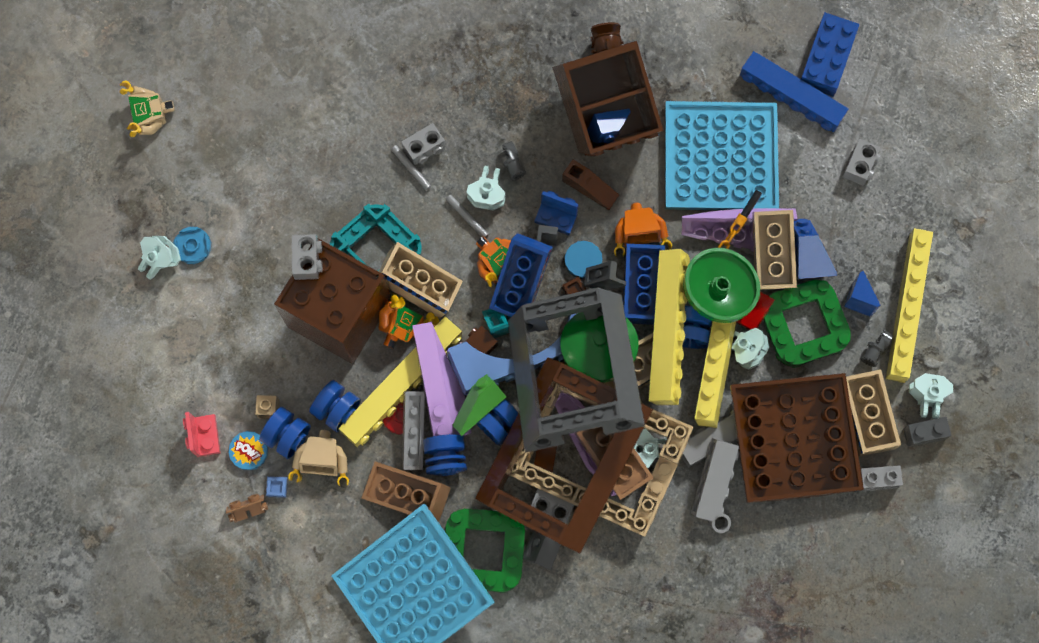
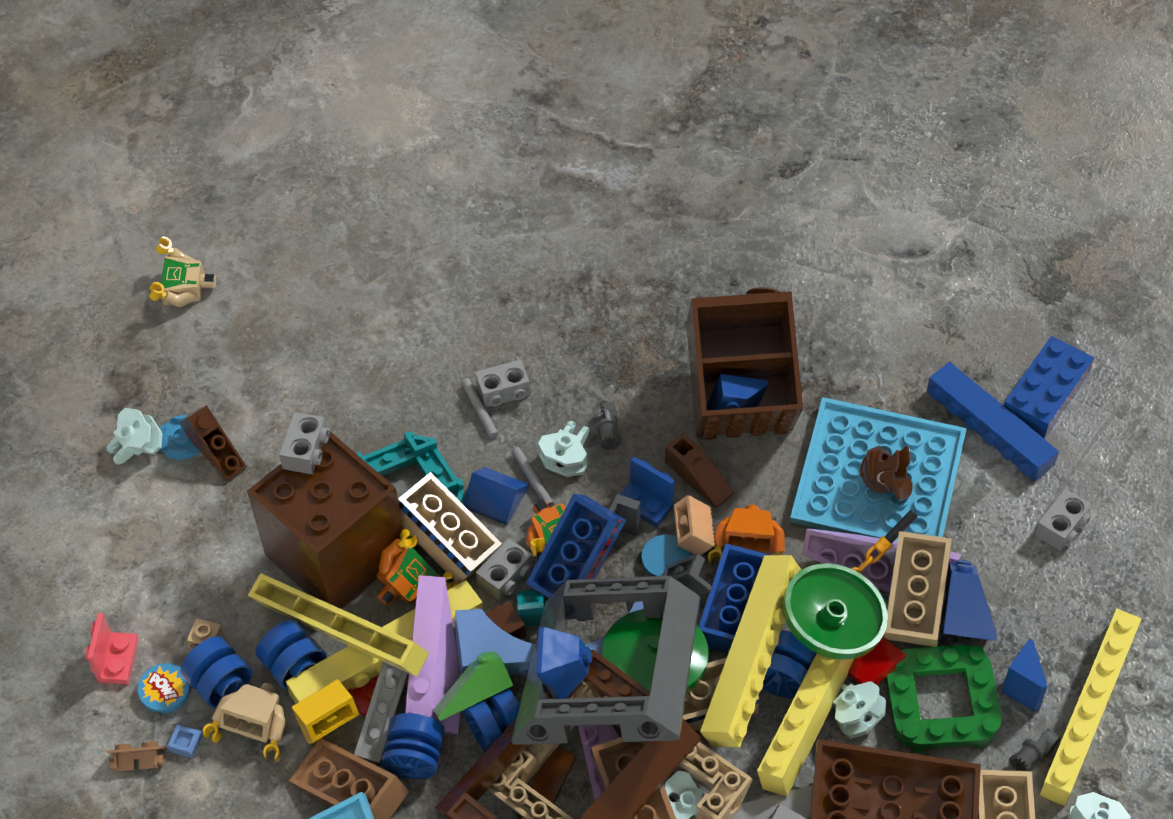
camera: 15 degrees right, 20 degrees down
(218, 246) = (212, 442): none -> reddish brown slope
(364, 378) = (339, 624): none -> light yellow brick
(375, 446) = (325, 711): none -> yellow slope
(443, 237) = (494, 494): none -> blue slope
(465, 297) = (500, 566): none -> light grey brick
(543, 381) = (561, 661): none -> blue slope
(598, 231) = (693, 525): none -> light nougat brick
(729, 156) = (887, 472): none -> reddish brown helmet

